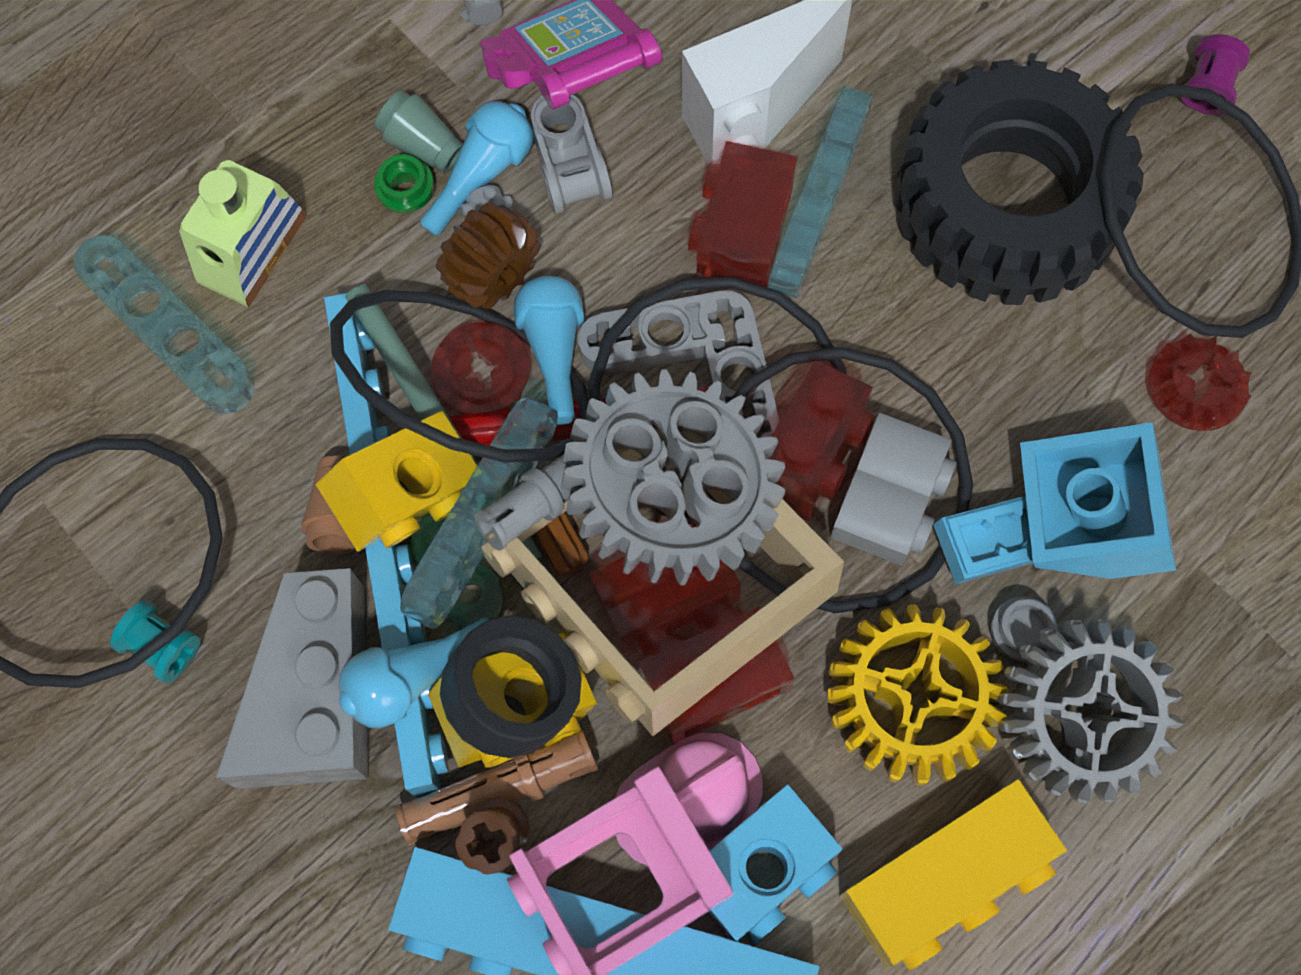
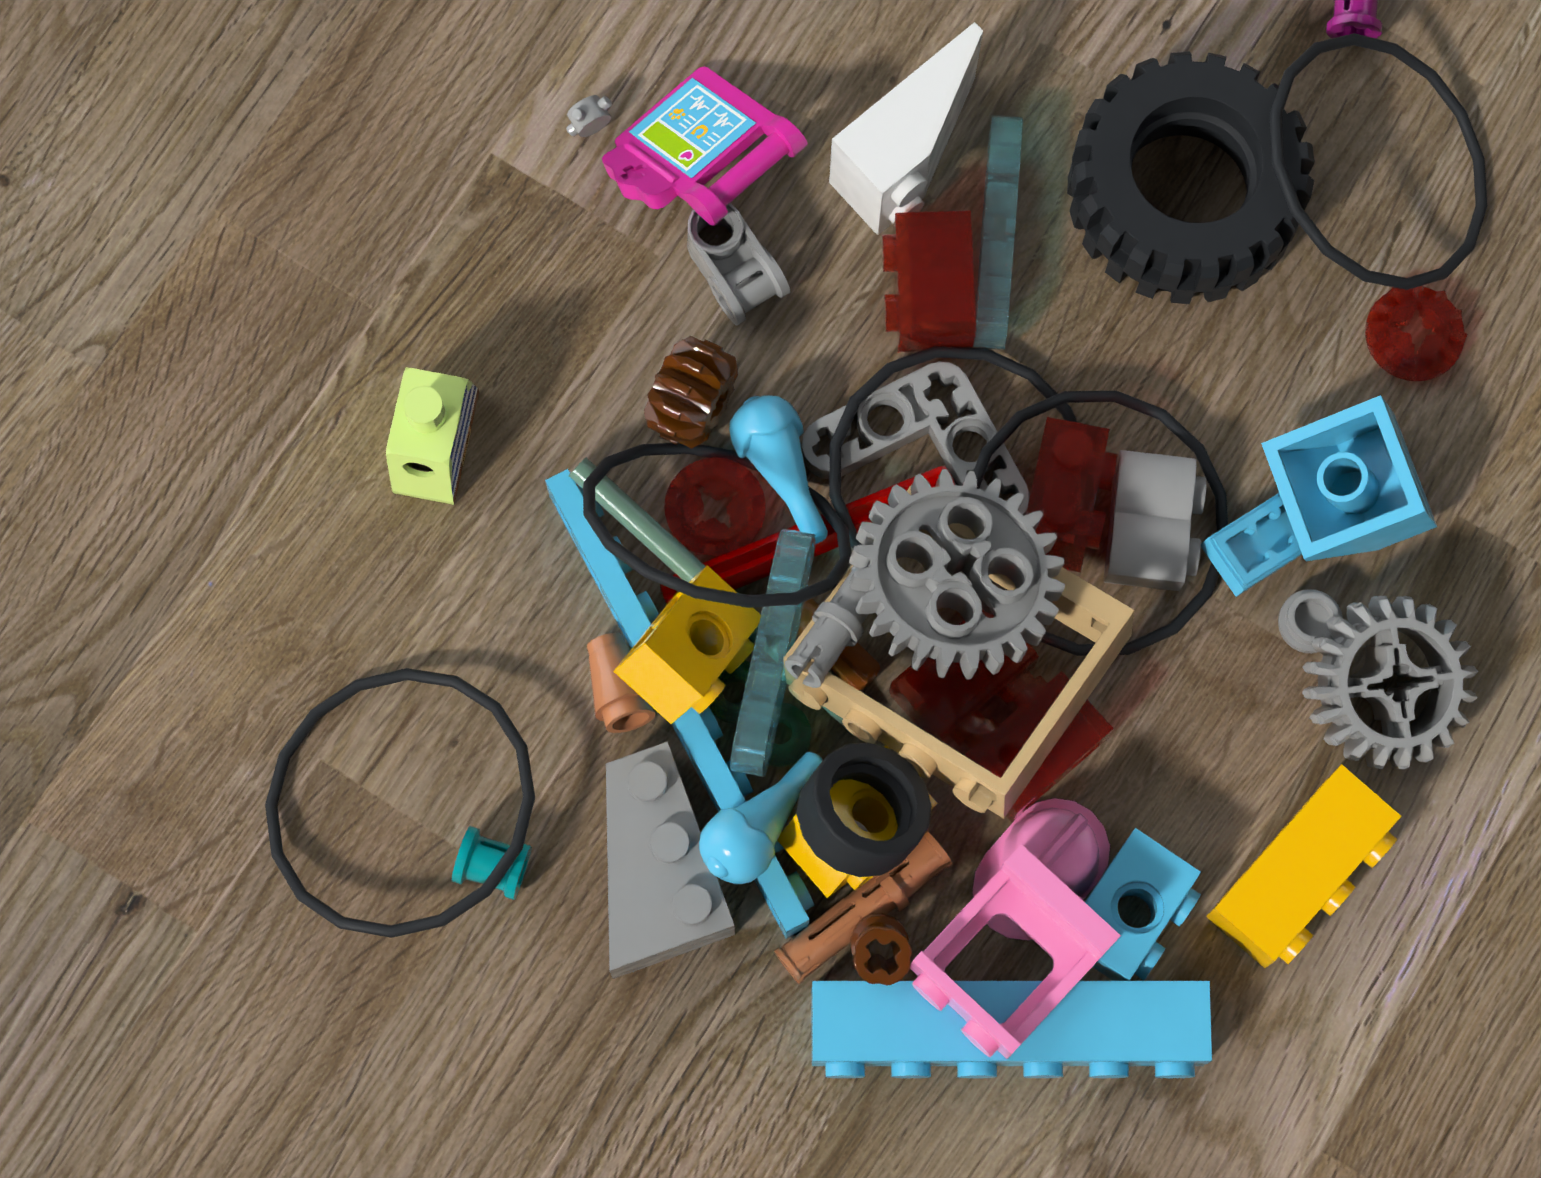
camera: 20 degrees left, 5 degrees up
(161, 325) = (374, 553): clear light blue beam -> none
(403, 169) = (569, 317): green plate -> none
(418, 131) = (572, 275): sand green cone -> none
(482, 196) = (664, 334): light grey piece -> none
(494, 141) = (654, 266): medium azure piece -> none
(948, 701) = (1258, 710): yellow gear -> none

